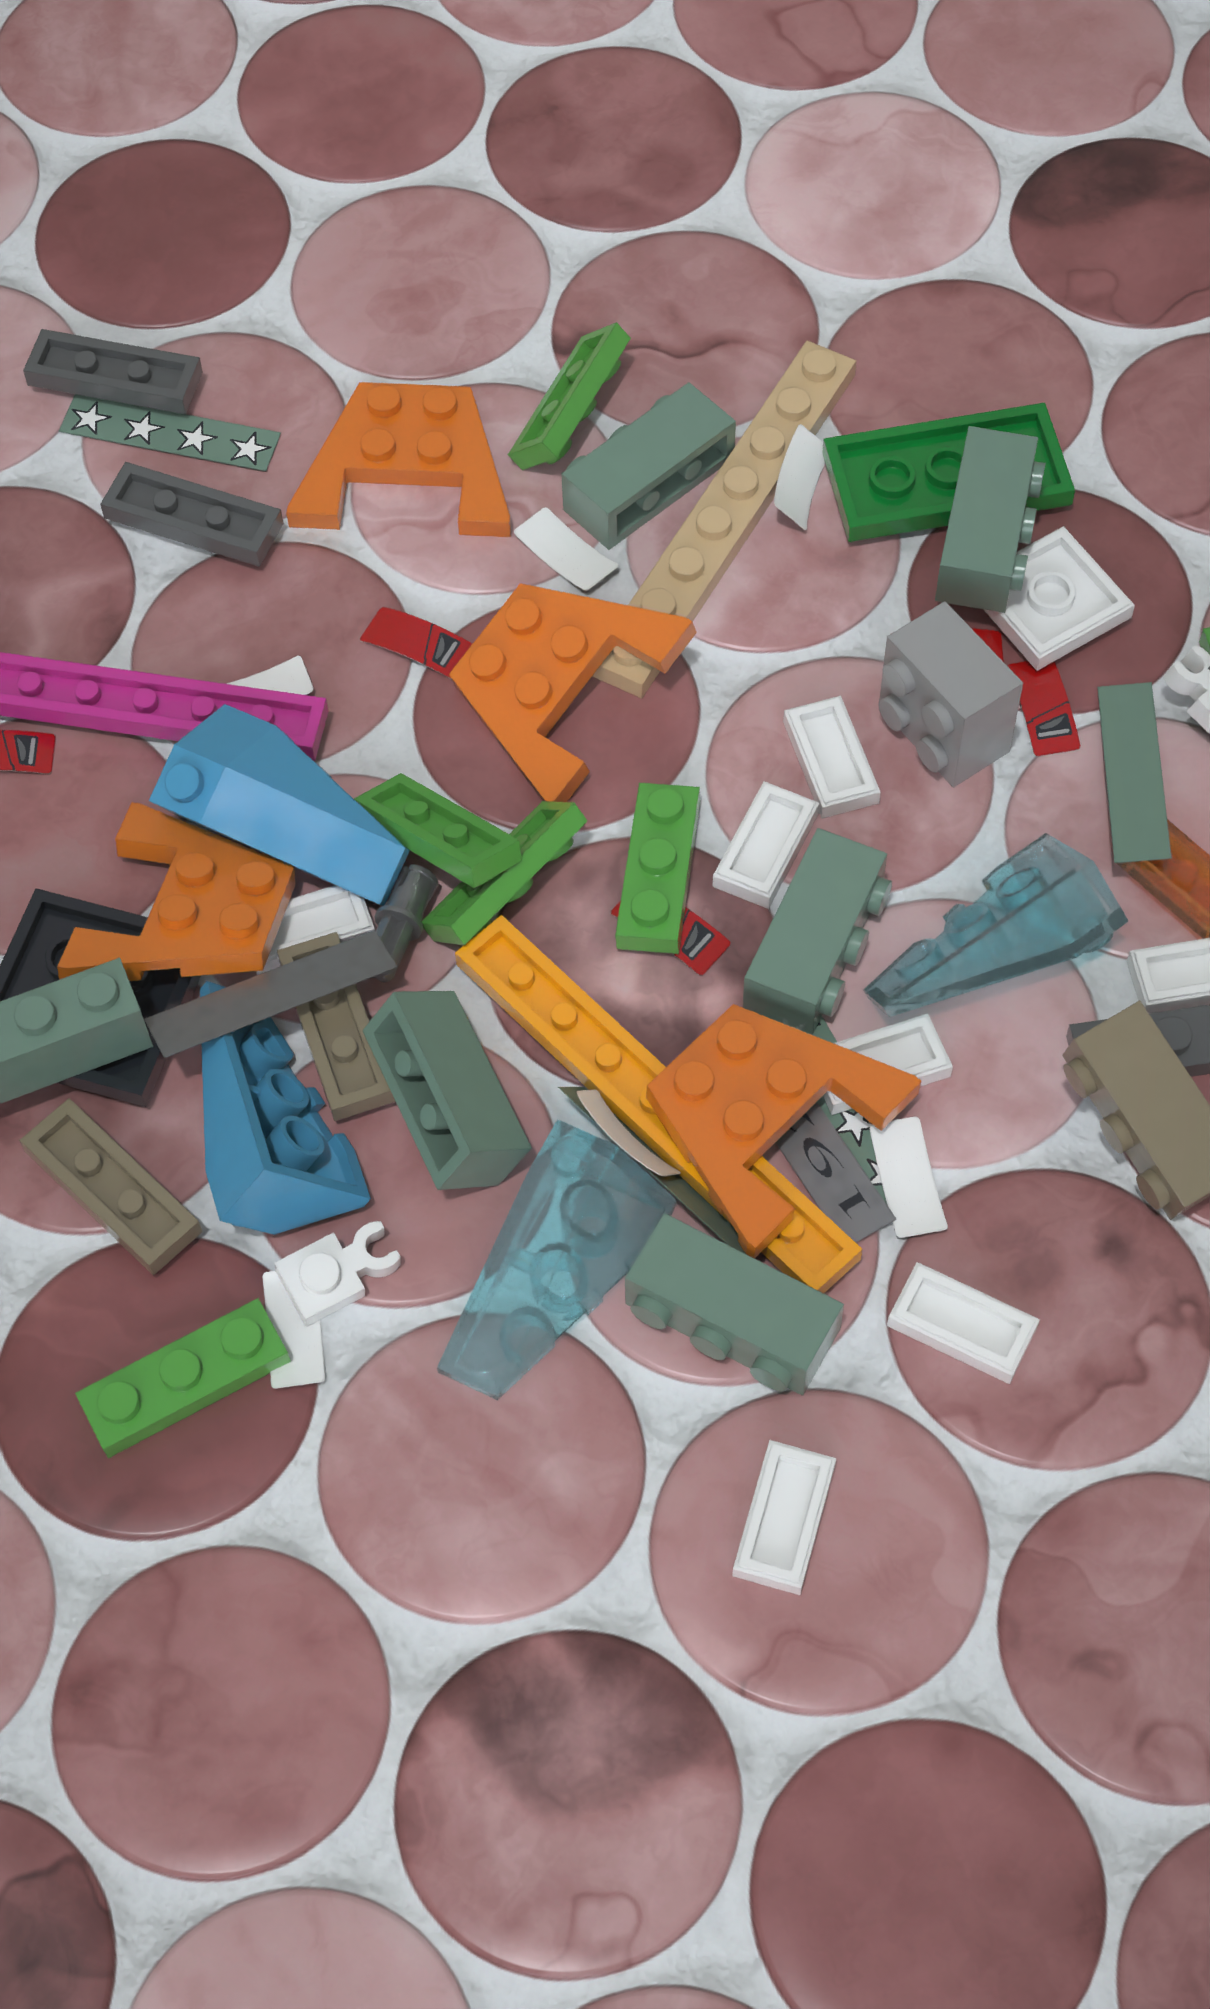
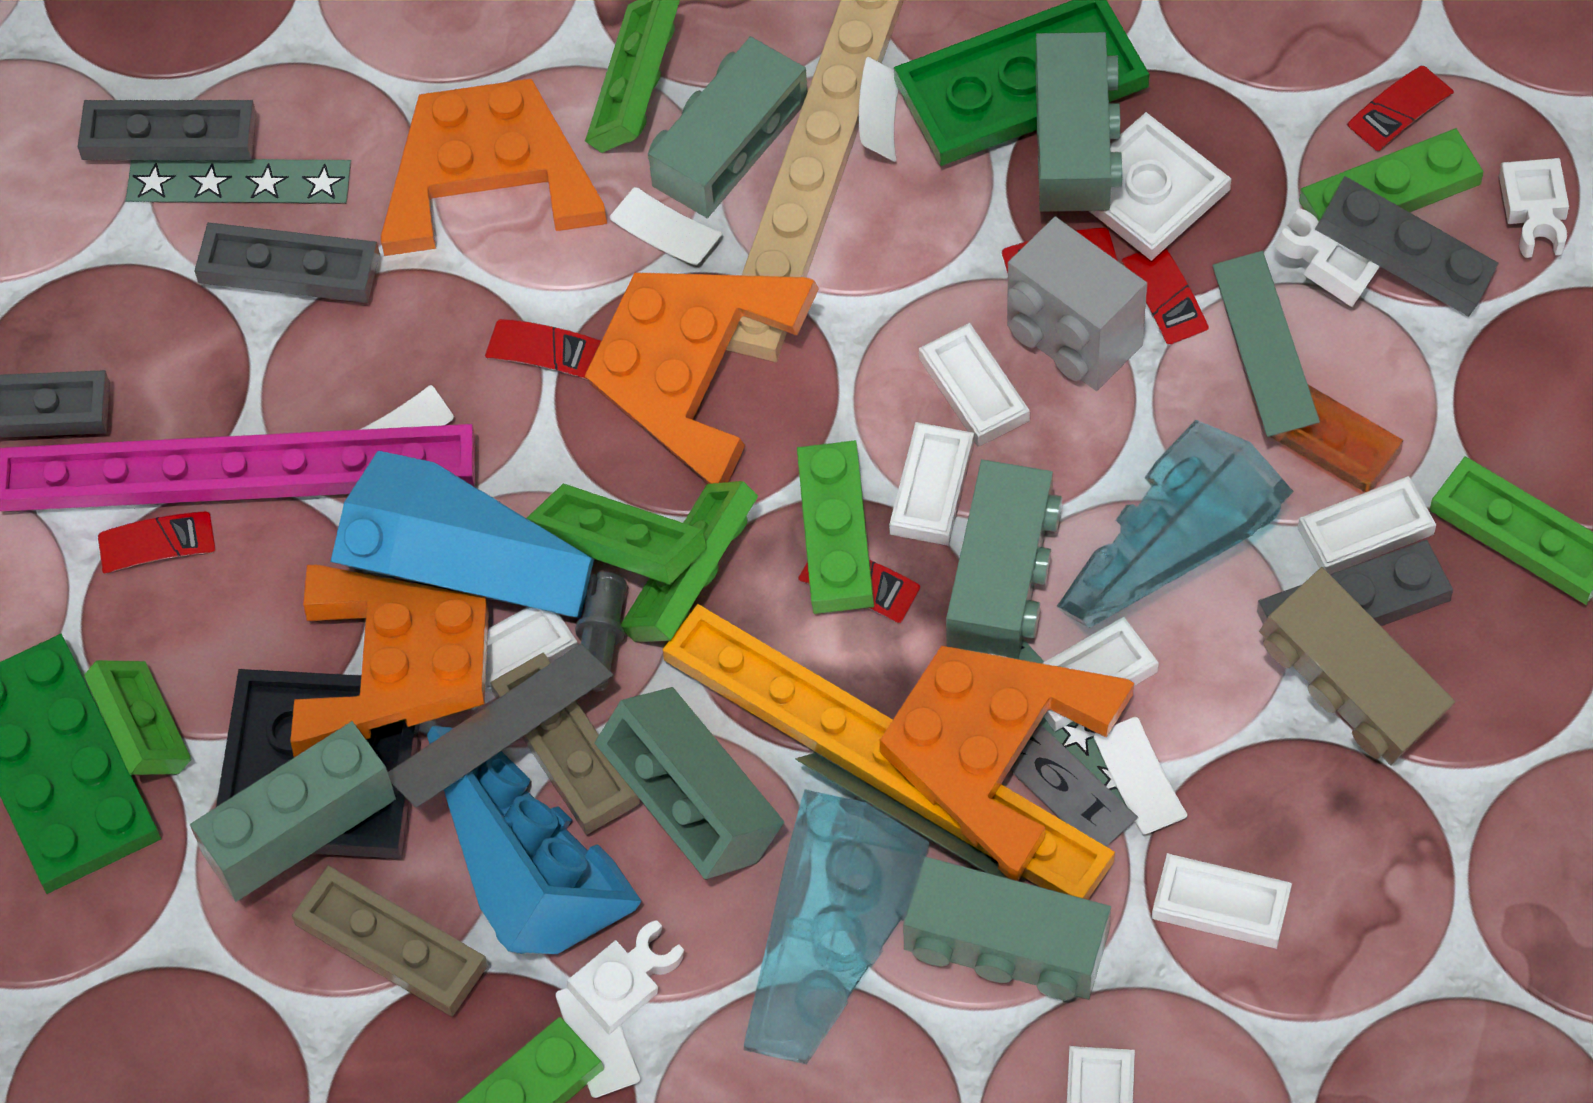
camera: 10 degrees left, 0 degrees up
(620, 1135) = (864, 792): white sticker -> none

